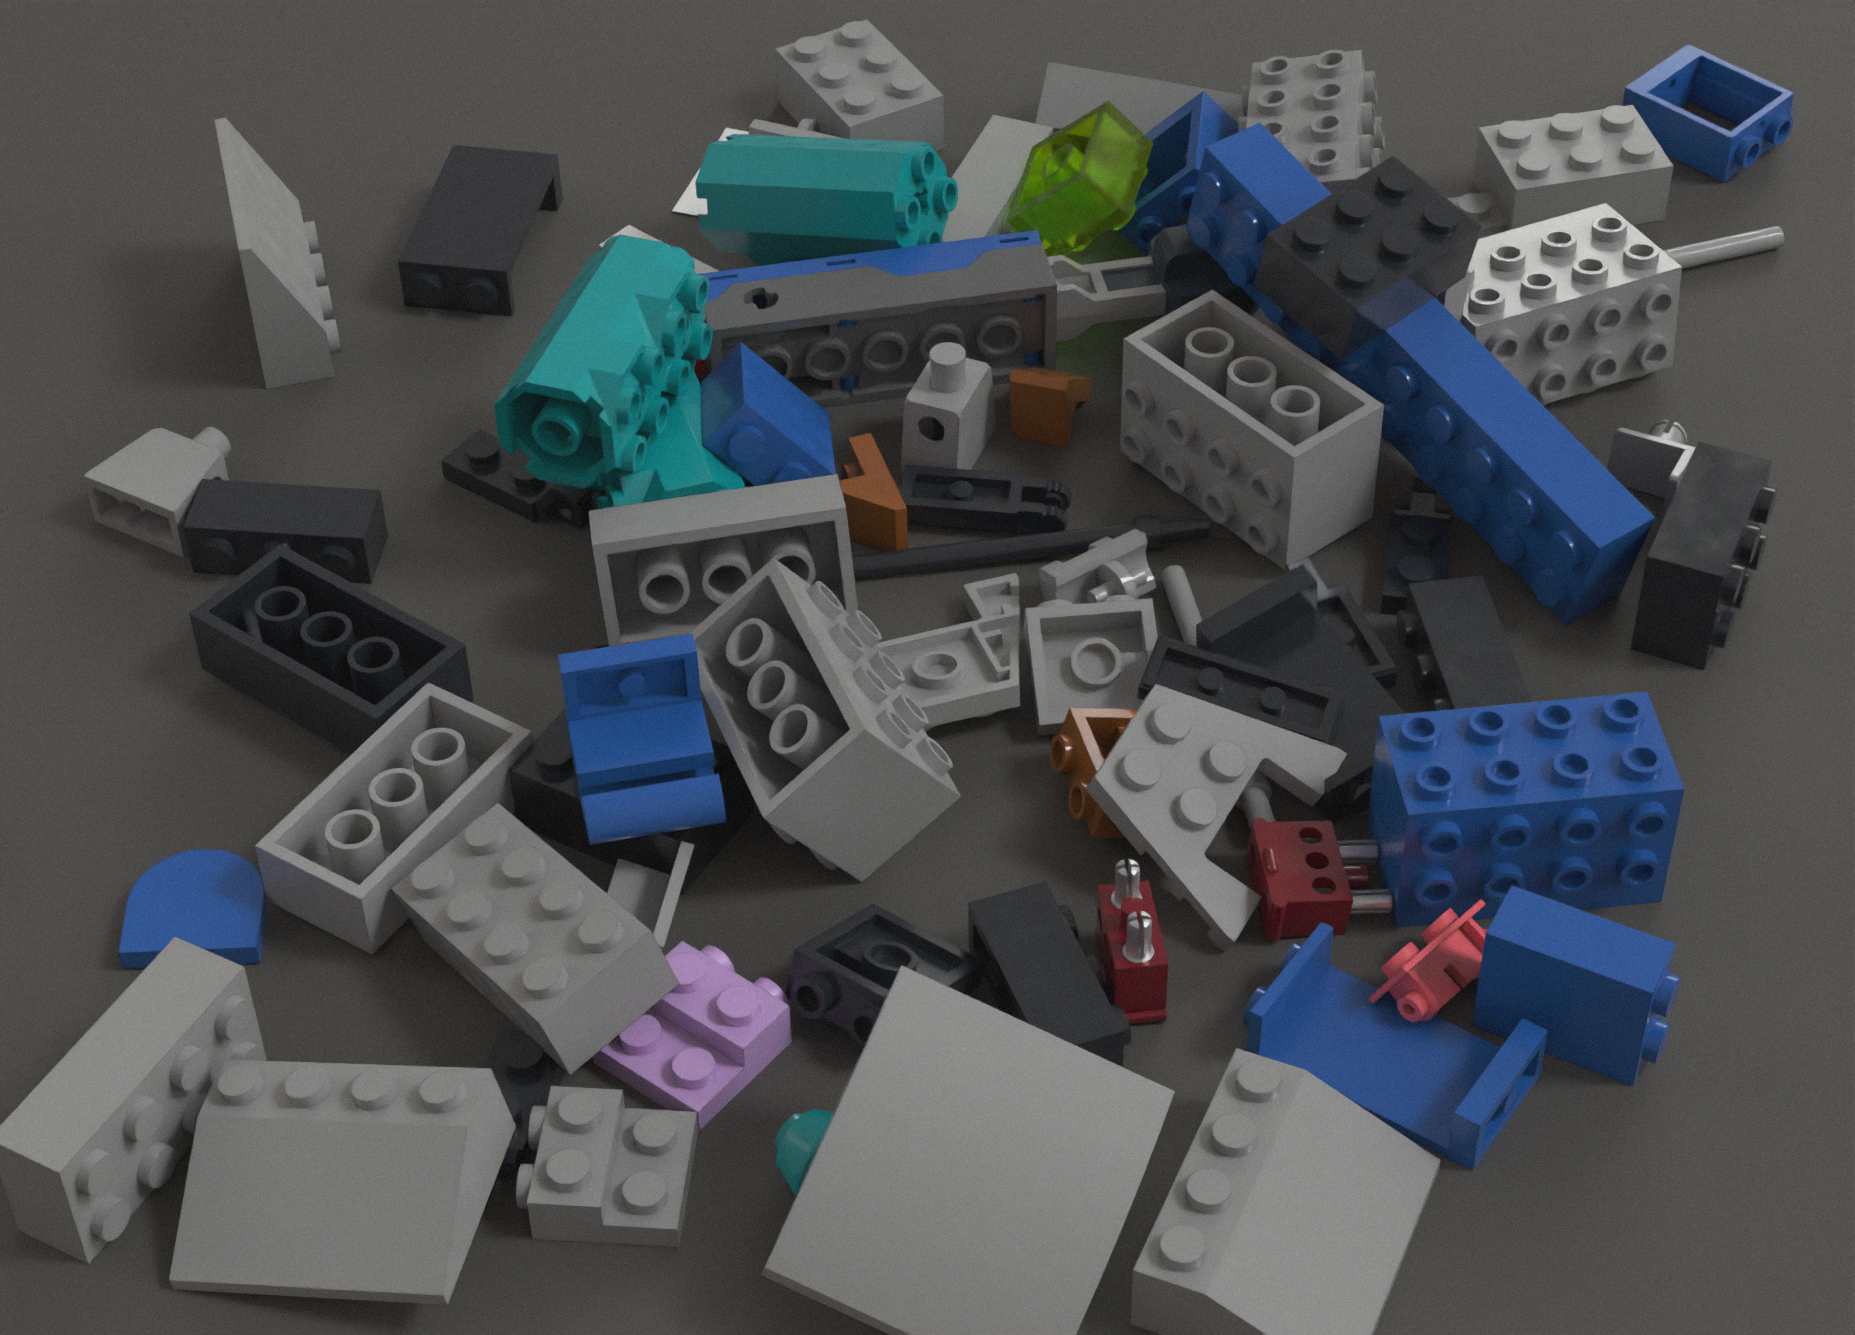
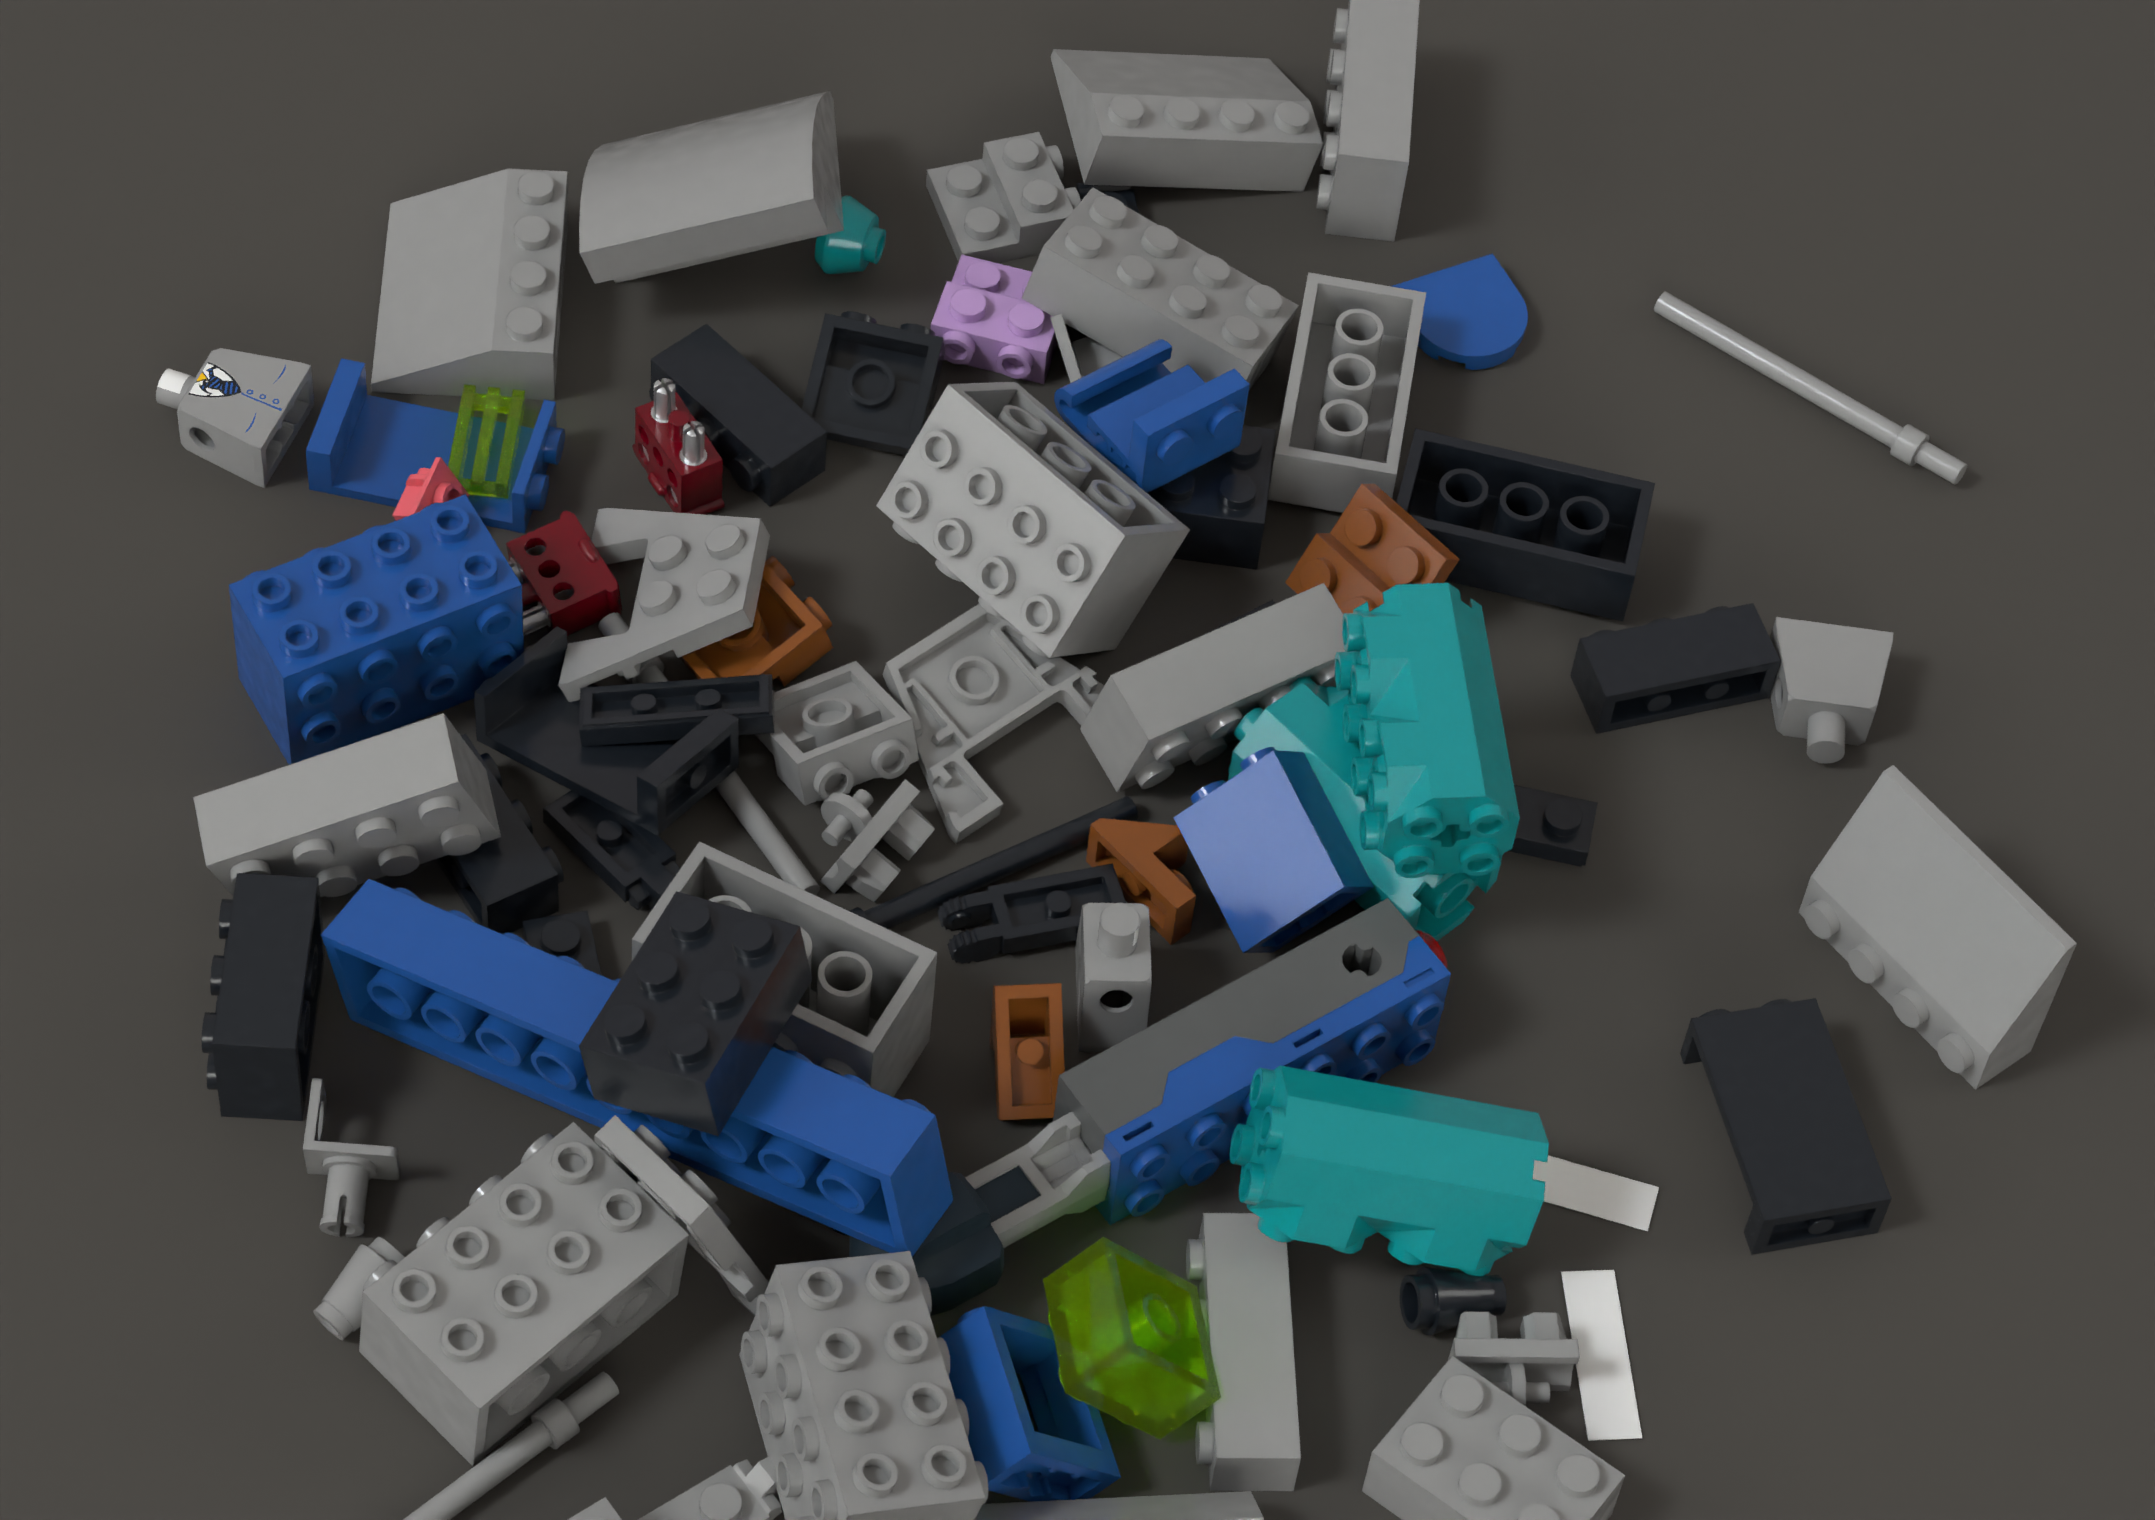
camera: 150 degrees right, 10 degrees up
(508, 635) = (1371, 552): none -> dark orange plate
(1350, 1001) = (491, 404): none -> clear neon green tile
(1581, 980) = (288, 489): blue brick -> none
(1602, 621) = (353, 811): none -> light grey brick
(1605, 1142) = (240, 410): none -> light grey torso
(1657, 390) = (343, 1302): none -> light grey cone

